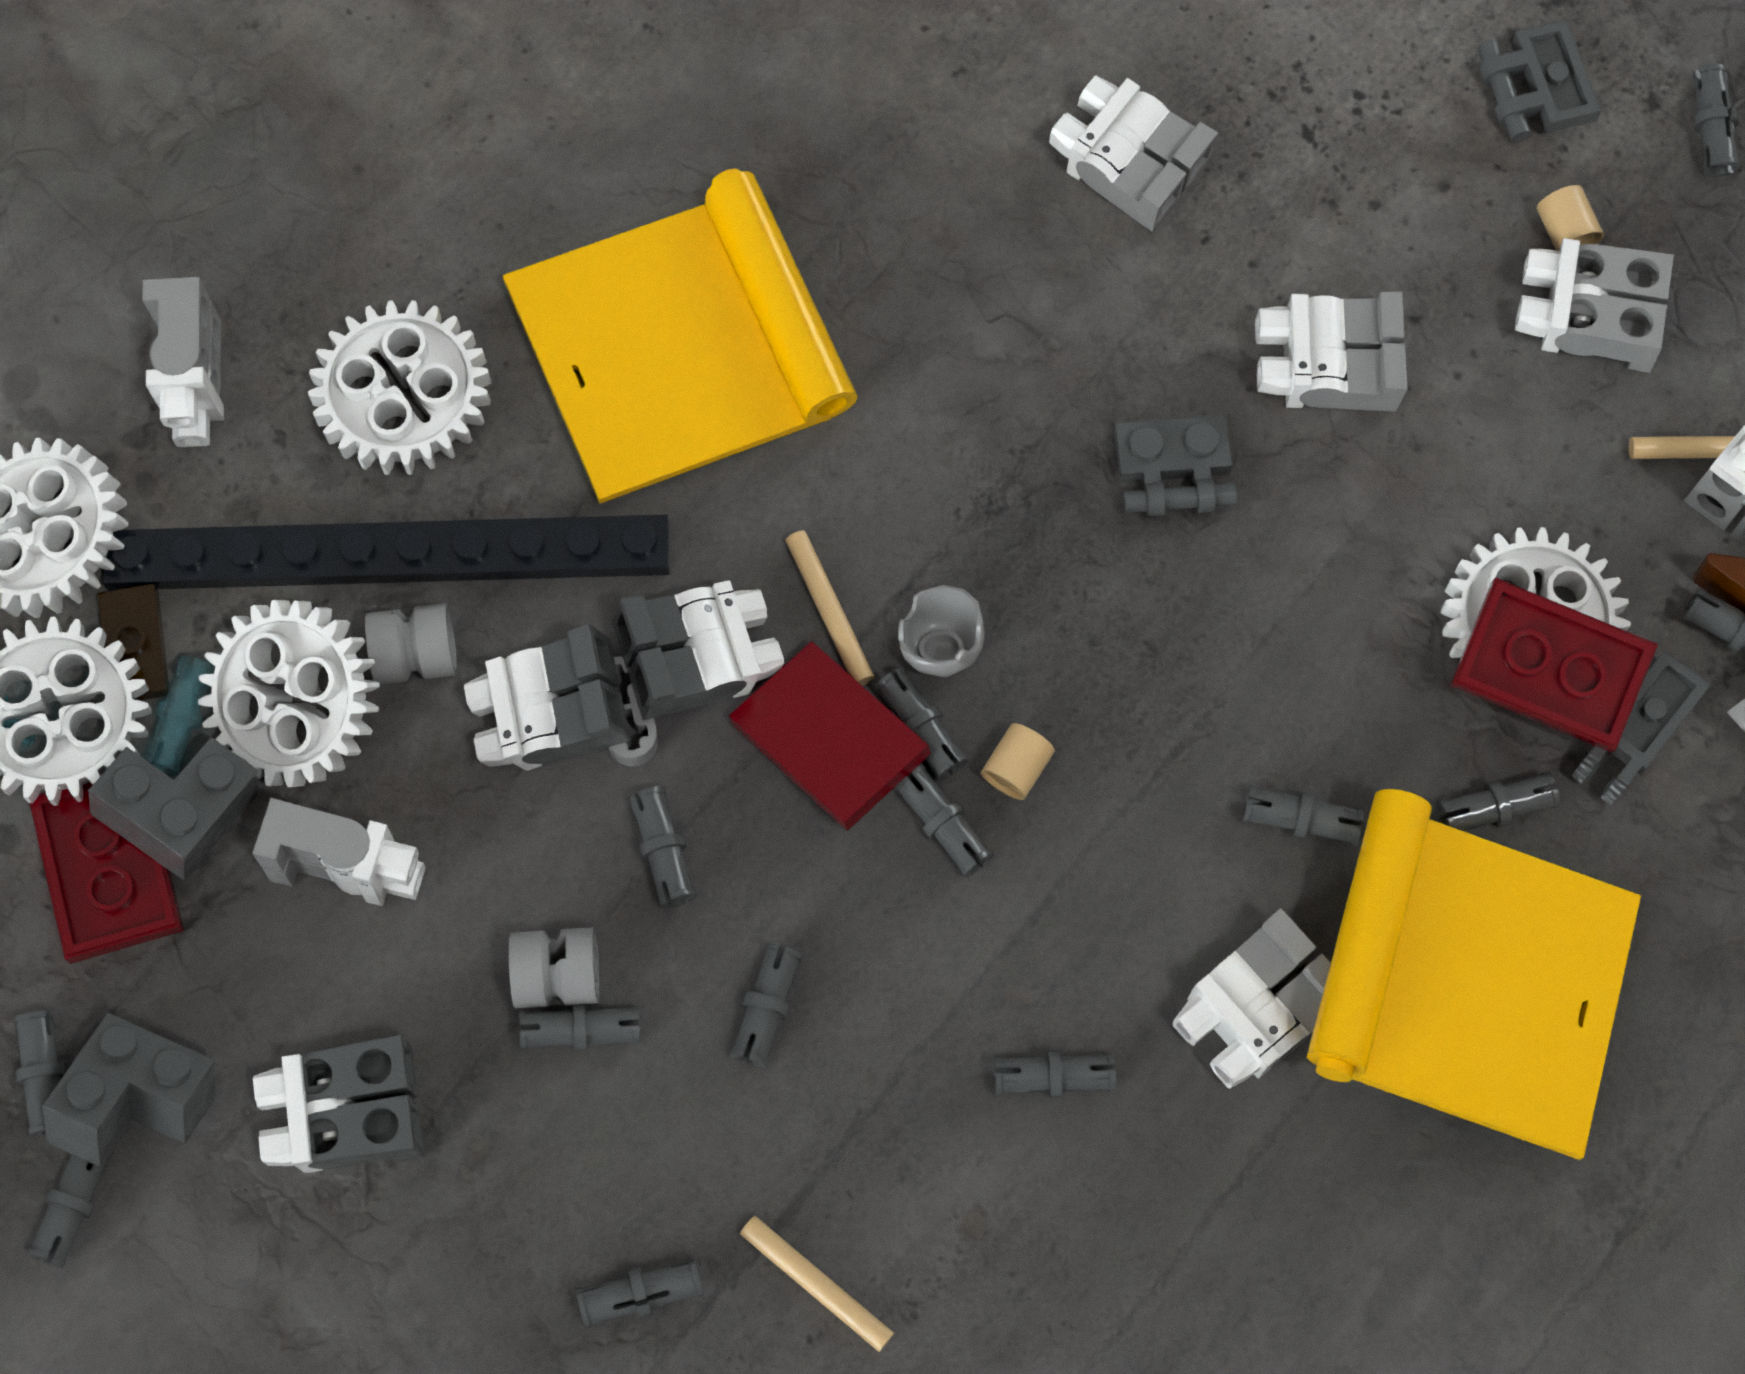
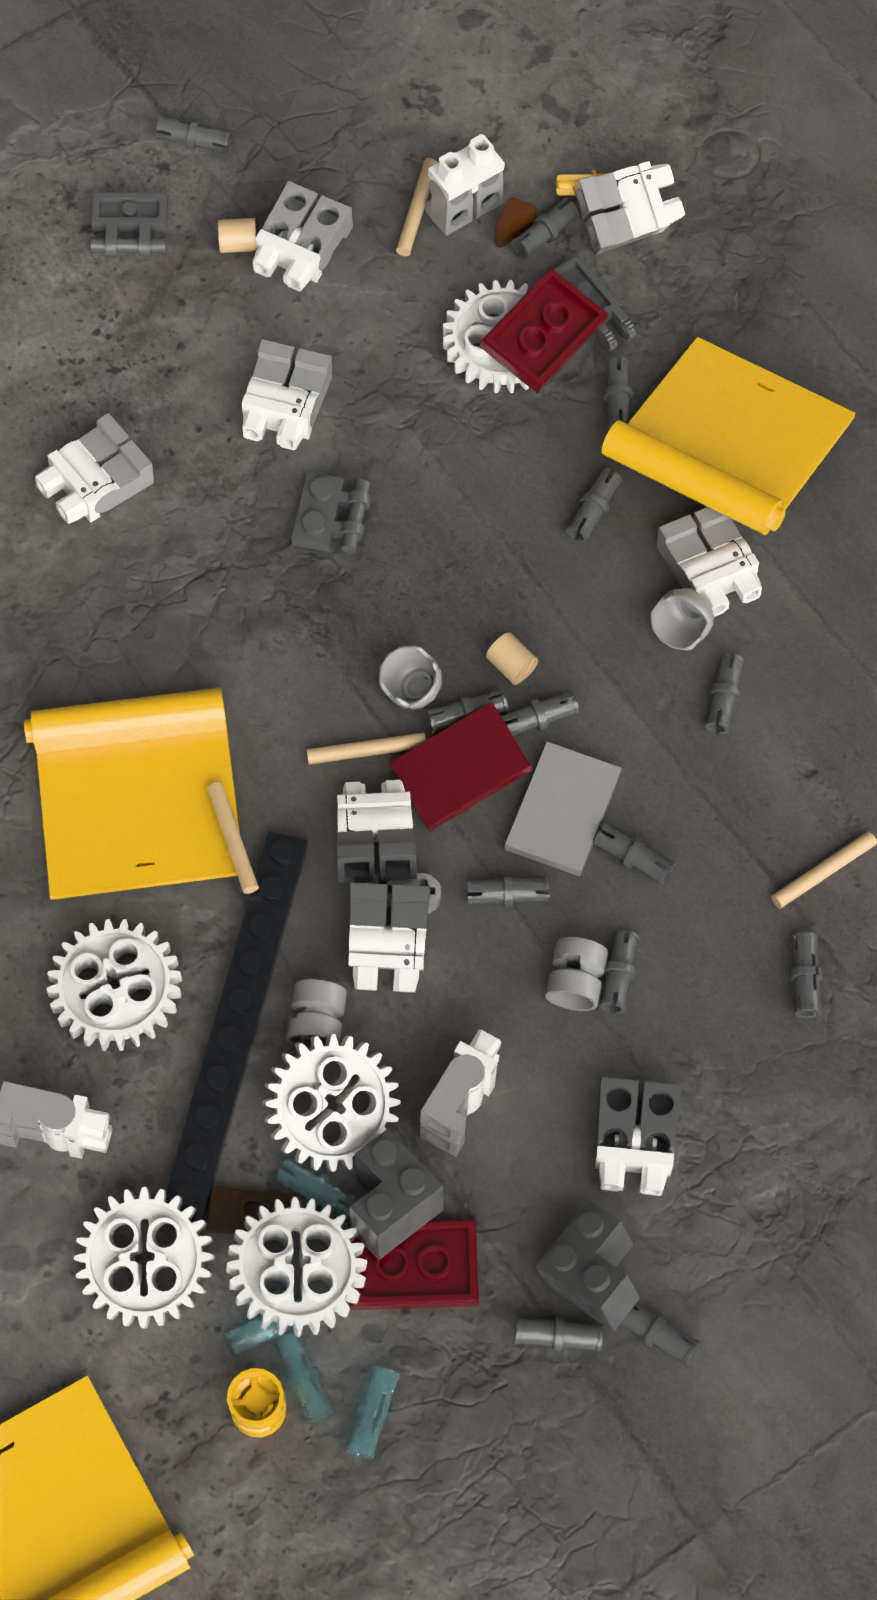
camera: 75 degrees left, 5 degrees down
(640, 469) = (232, 838): none -> tan bar
(811, 892) = (563, 809): none -> light grey tile
(1149, 981) = (682, 618): none -> light grey hair

